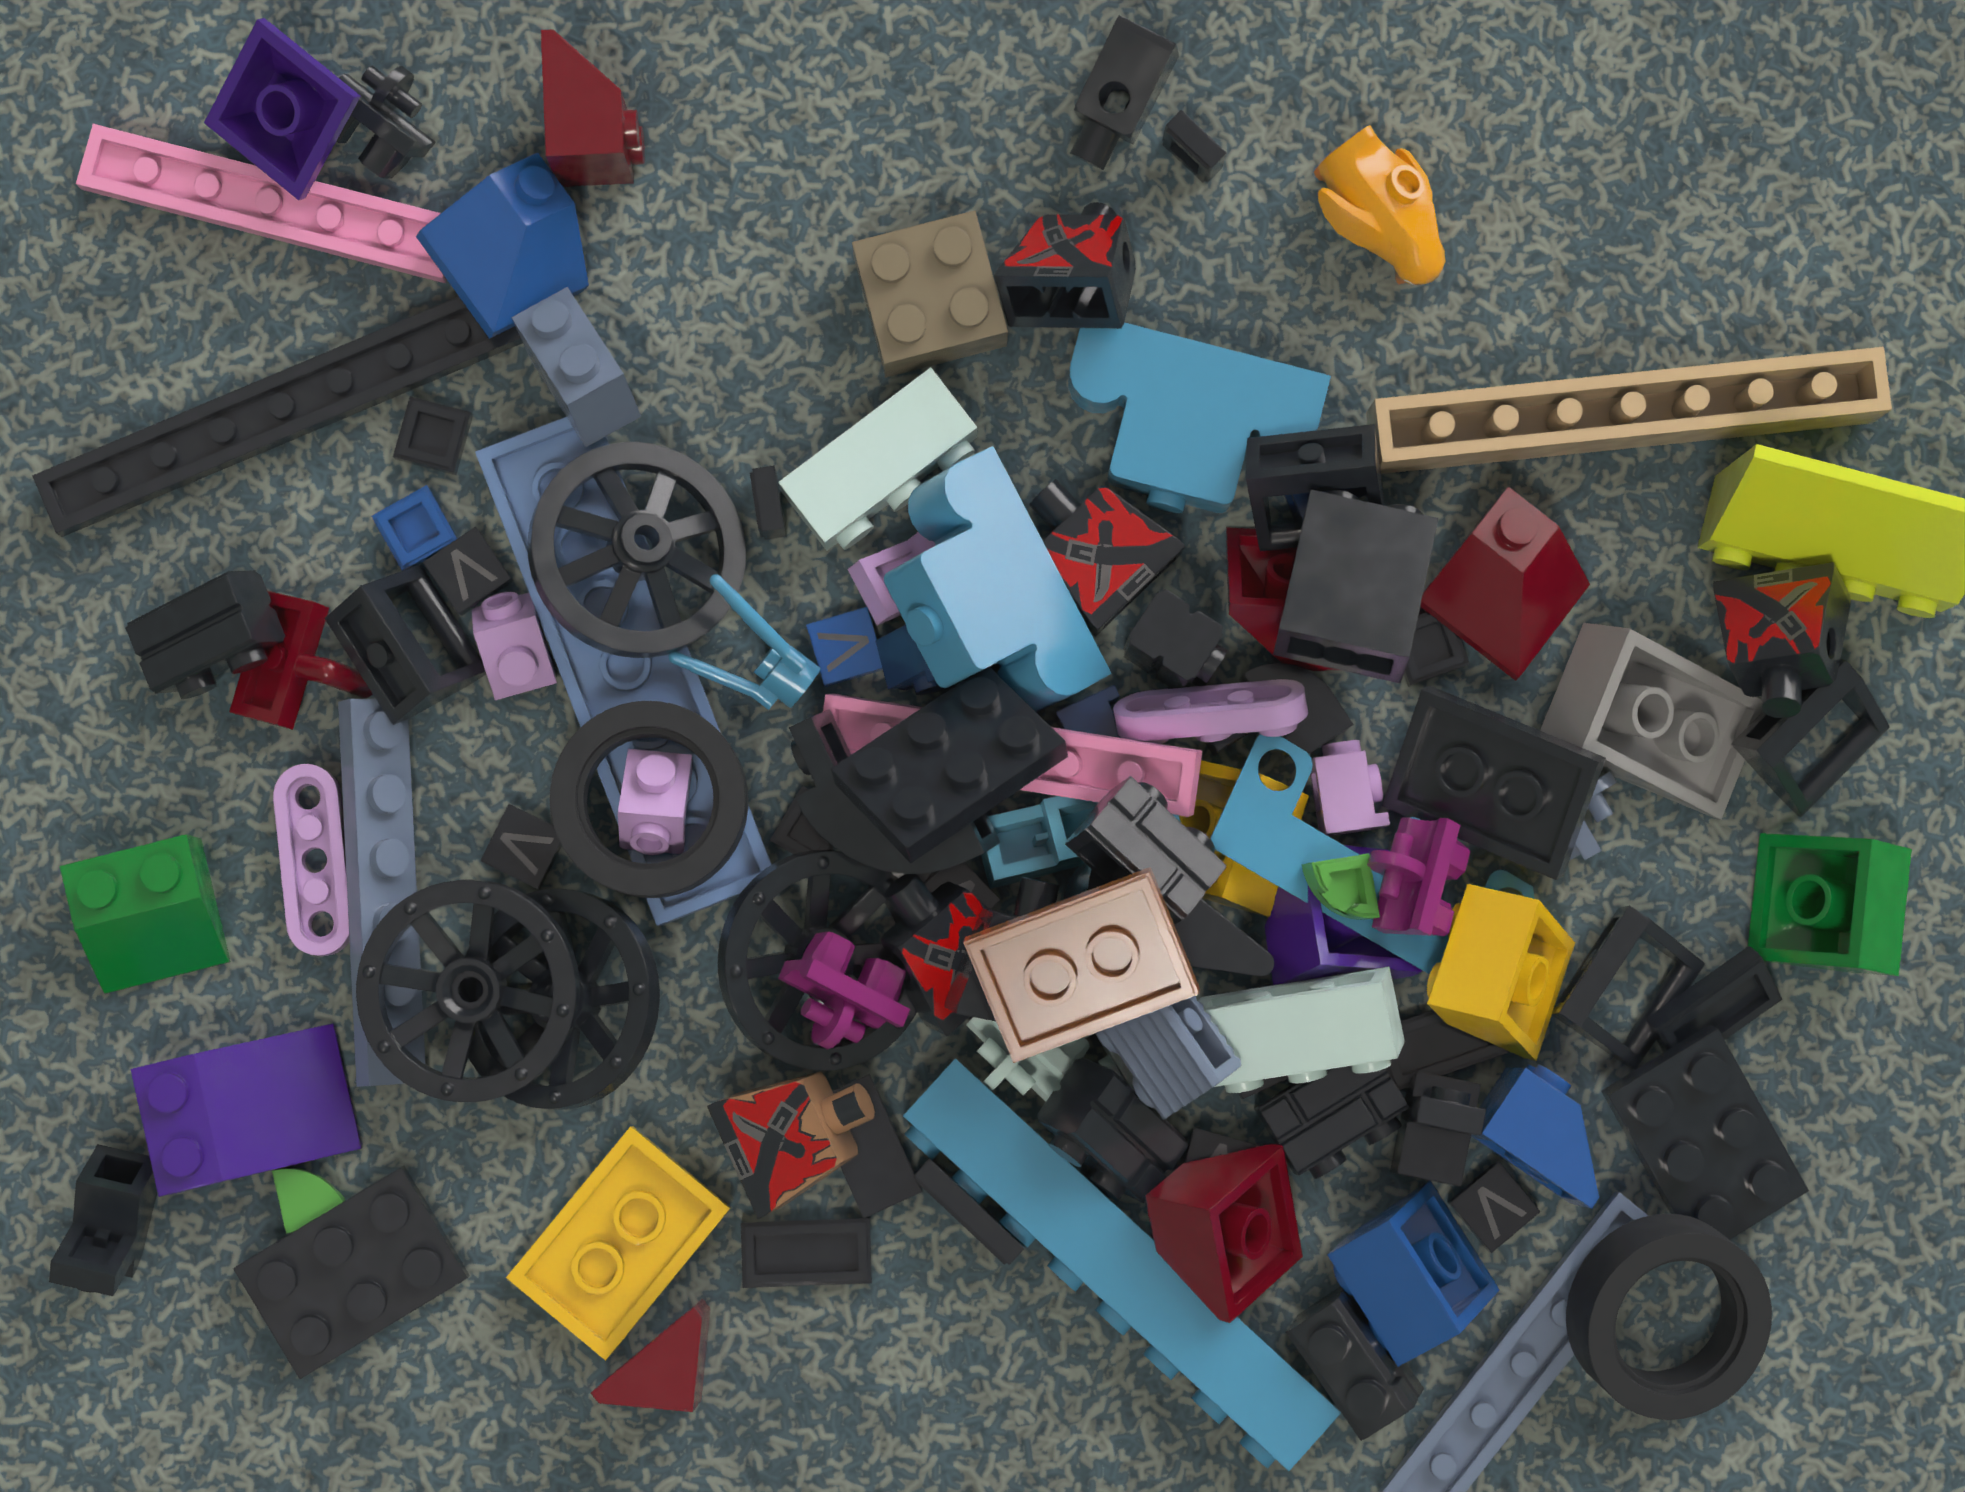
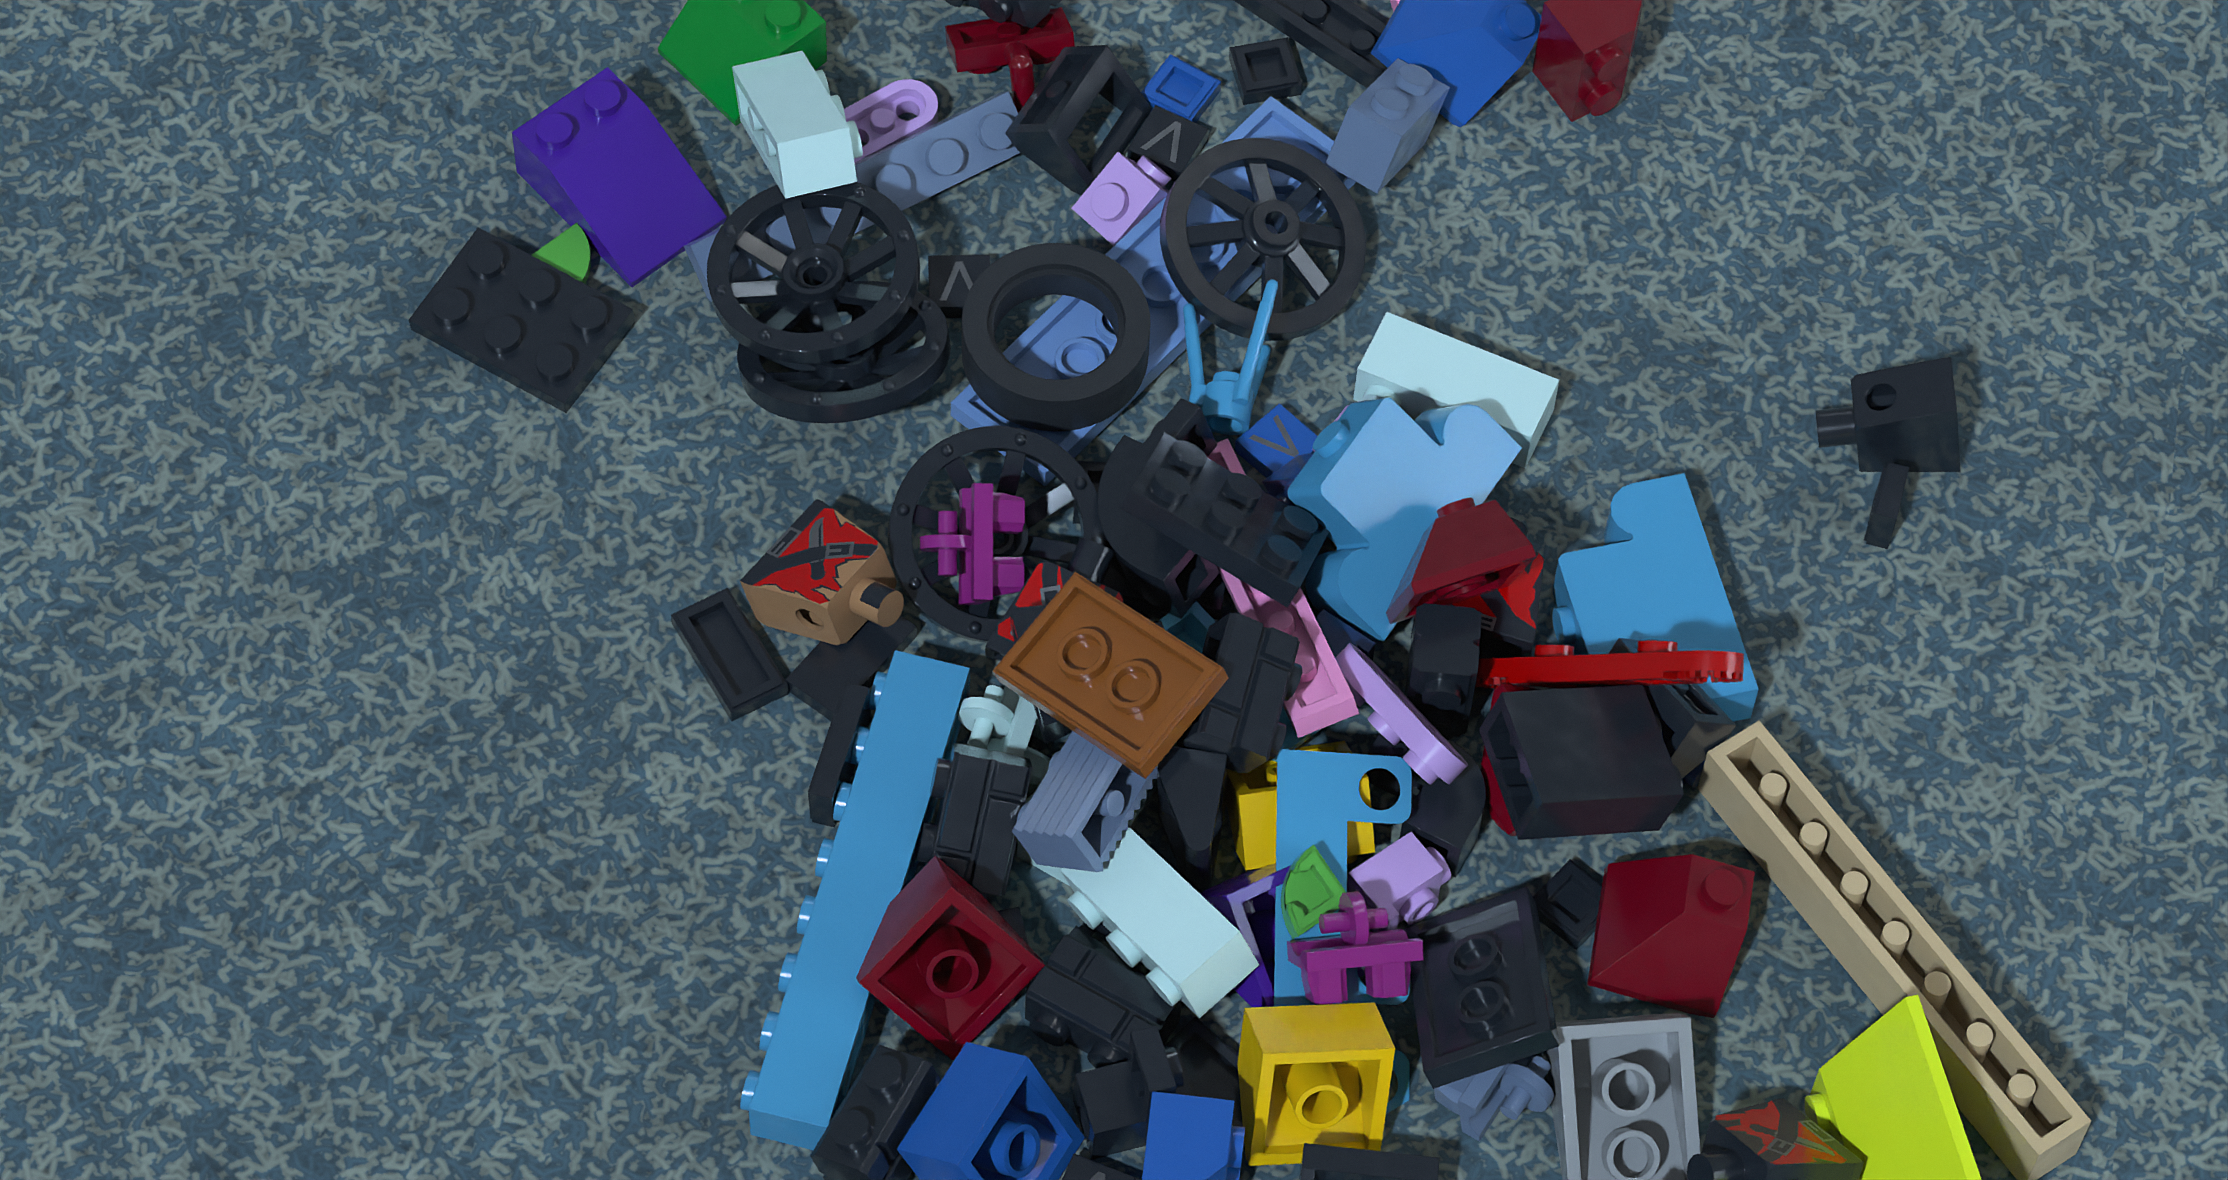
camera: 65 degrees right, 25 degrees down
(109, 1222) = (465, 125): black brick -> none
(298, 924) = (797, 124): none -> light aqua brick
(618, 1242) = (658, 502): yellow plate -> none
(654, 801) = (1056, 339): lavender bracket -> none
(666, 1371) = (577, 563): dark red slope -> none
(767, 502) = (1359, 324): black tile -> none
(930, 293) = (1623, 361): dark tan brick -> none
(1069, 272) = (1733, 461): torso -> none
(1102, 580) = (1462, 557): none -> dark red slope
(1284, 507) = (1652, 665): none -> red piece
(1383, 205) = (1938, 669): light orange animal -> none

